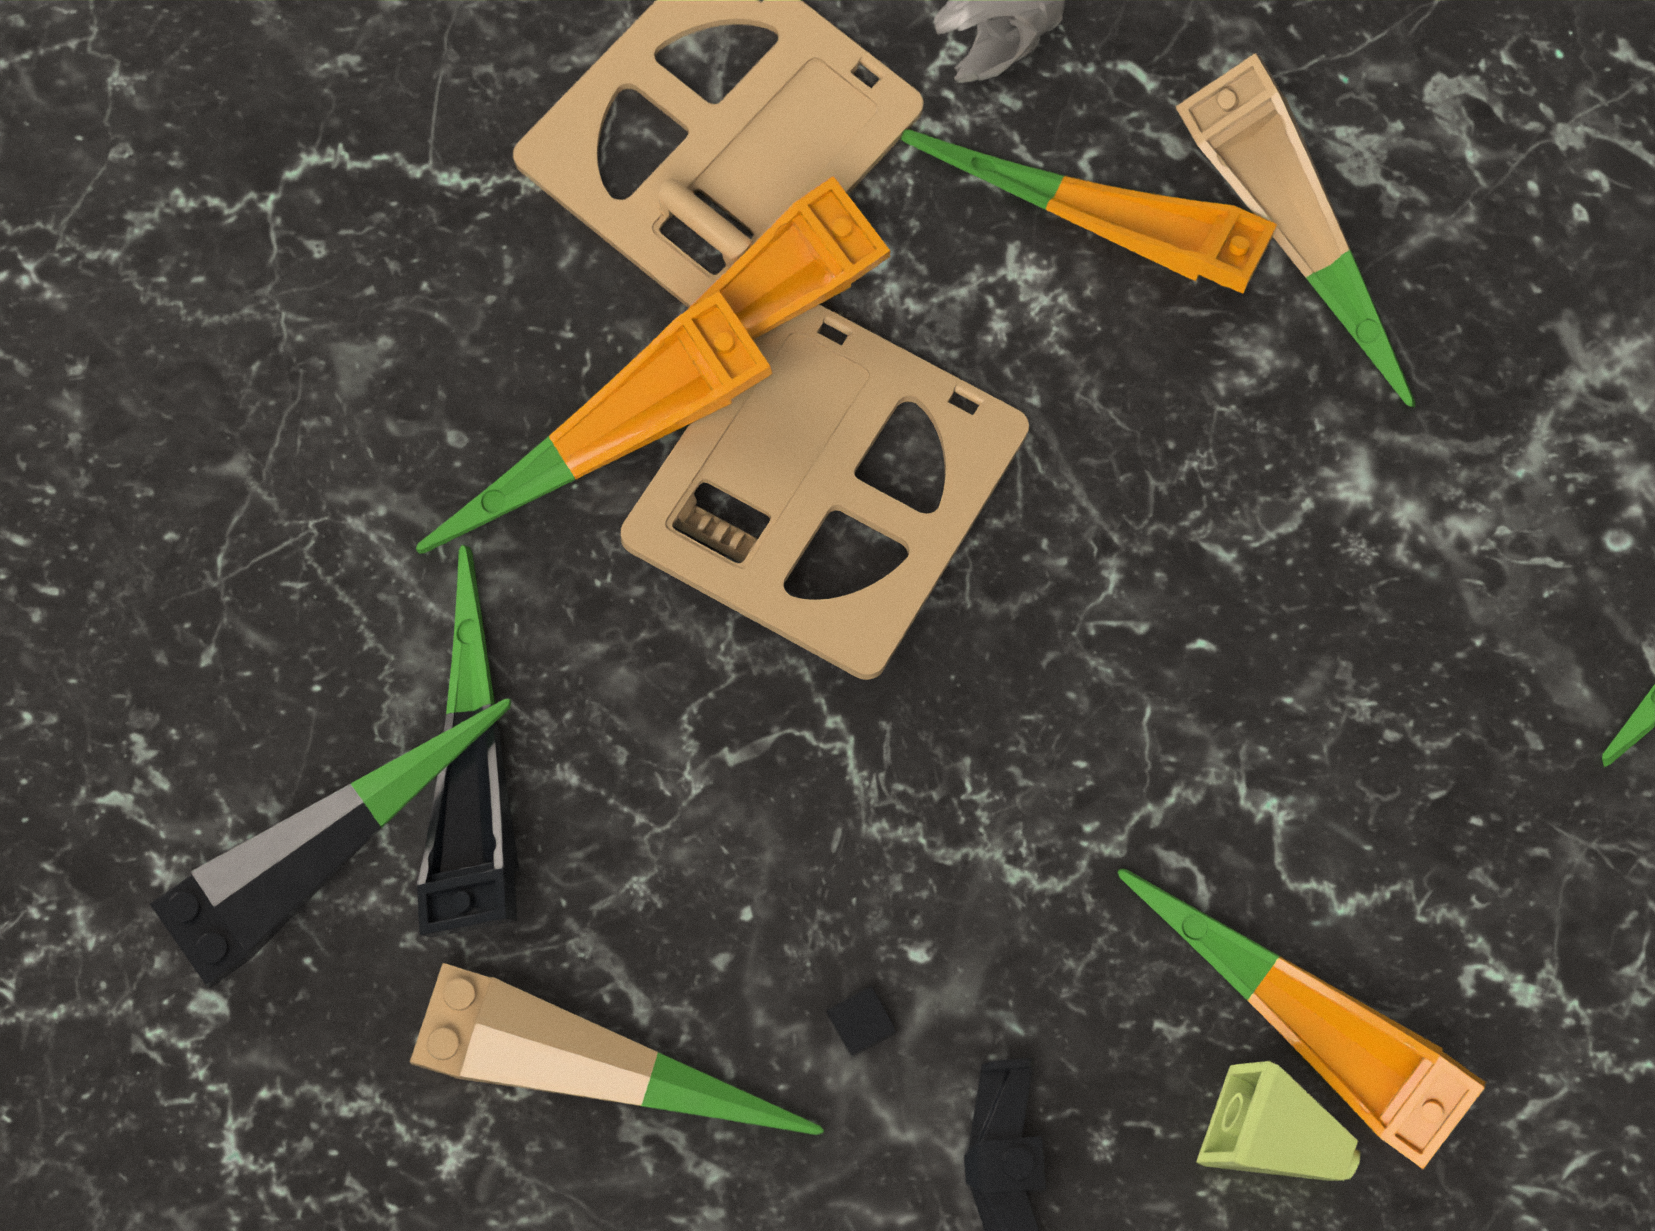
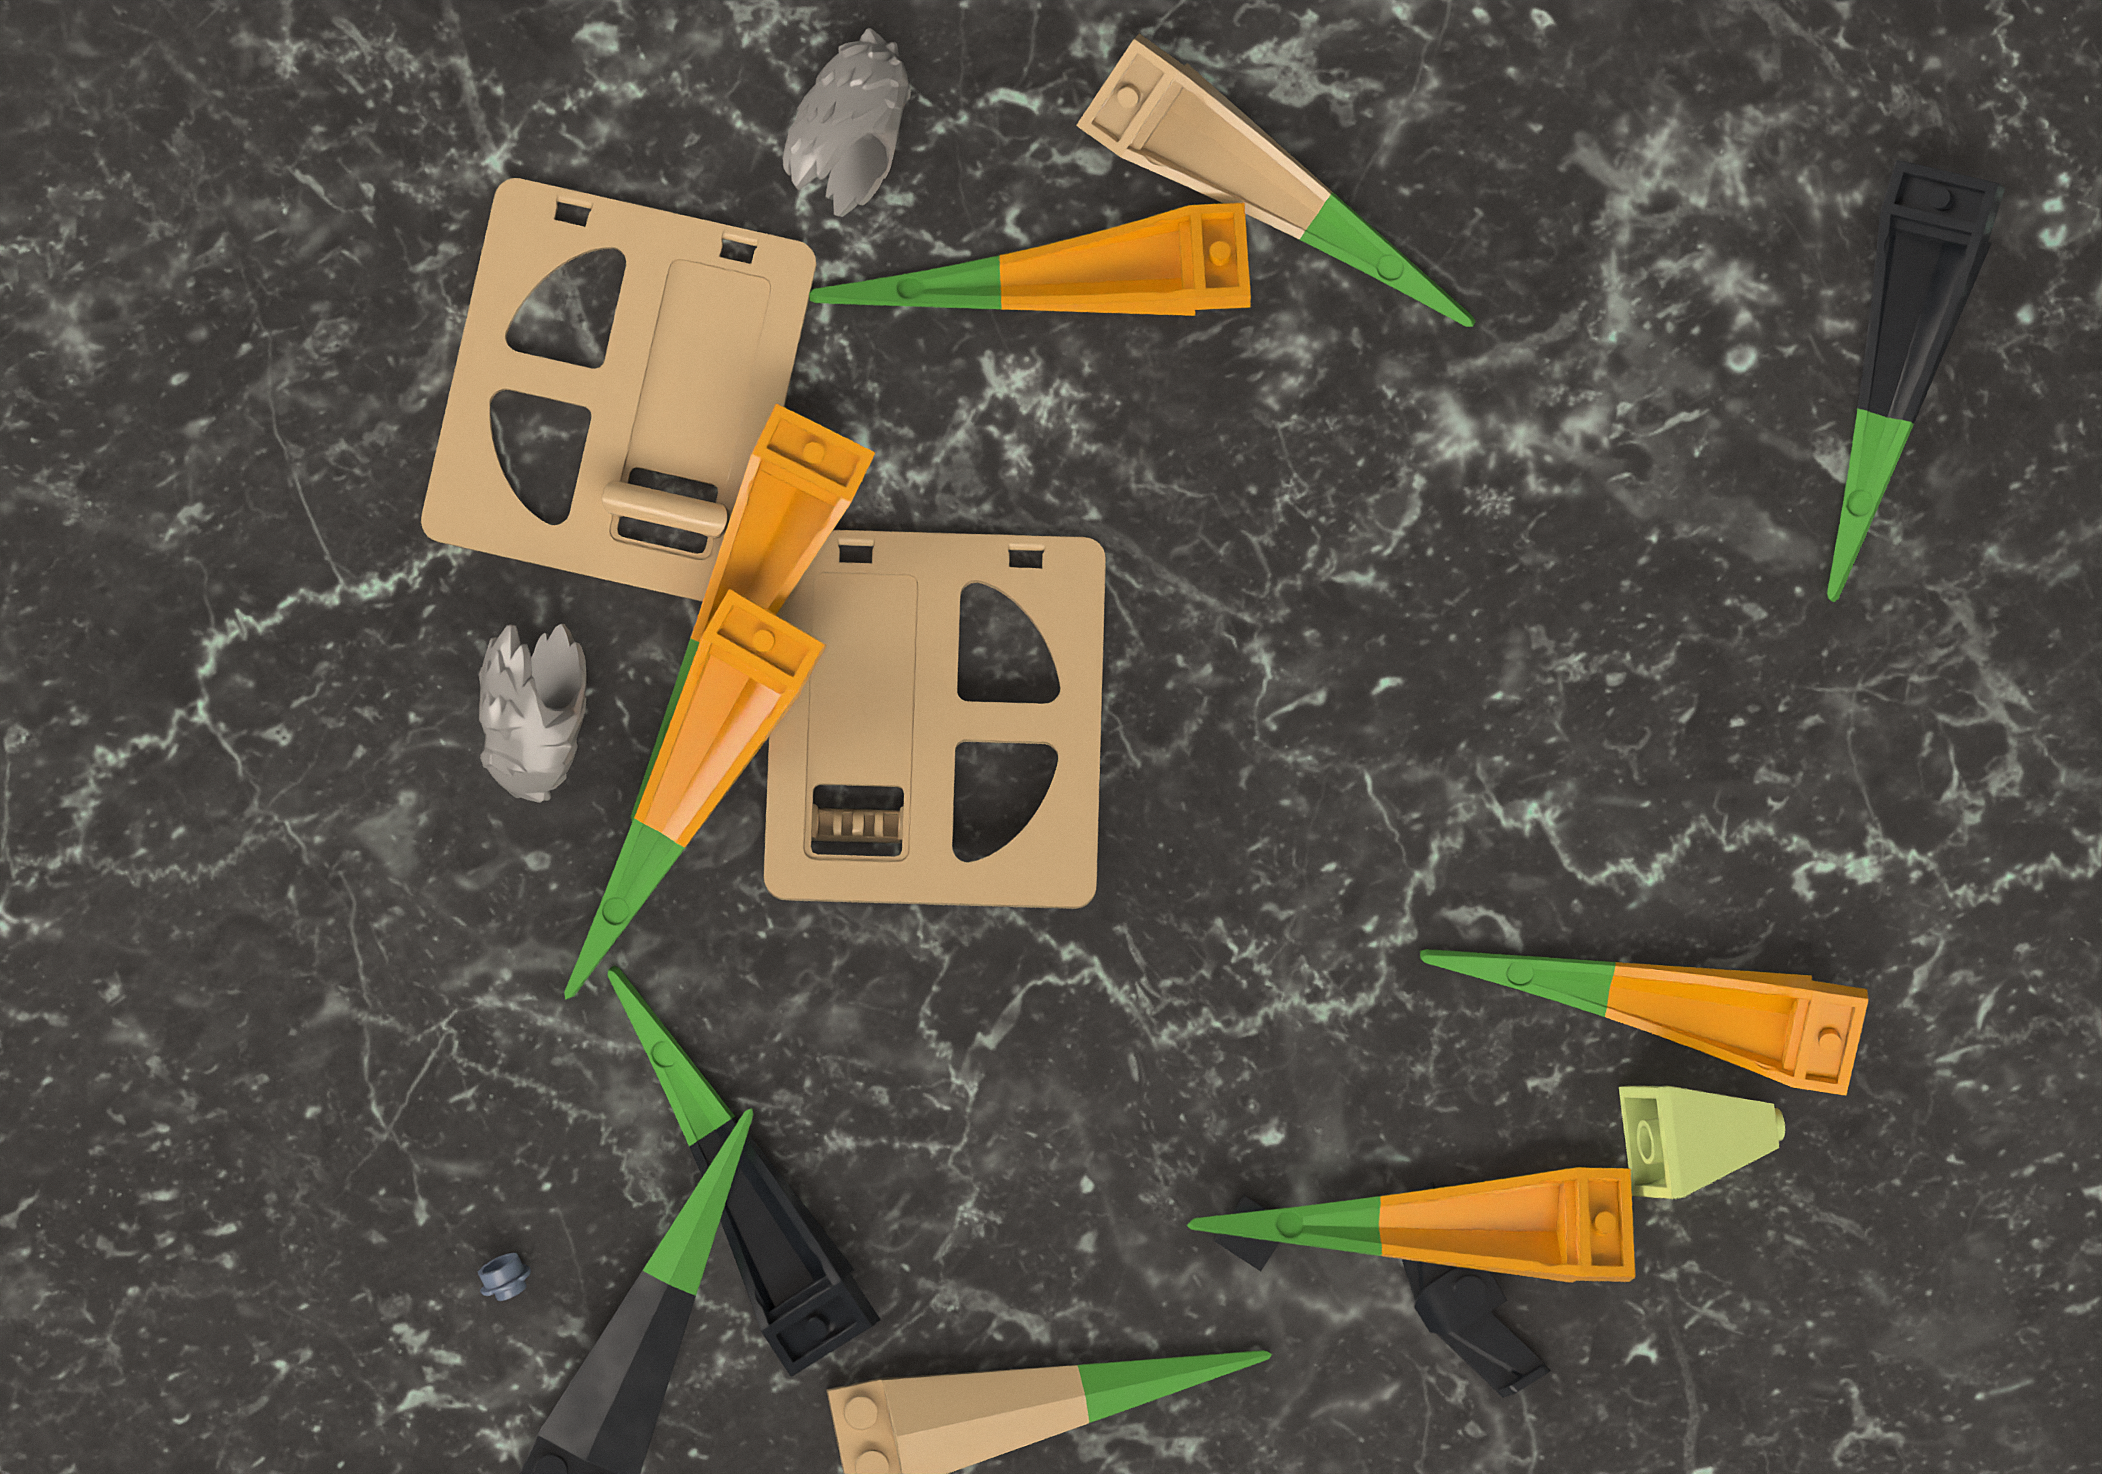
camera: 30 degrees left, 15 degrees up
(240, 736) = (504, 1276): none -> sand blue plate
(508, 323) = (531, 710): none -> light grey head
(1098, 1134) = (1533, 1225): none -> light orange plate

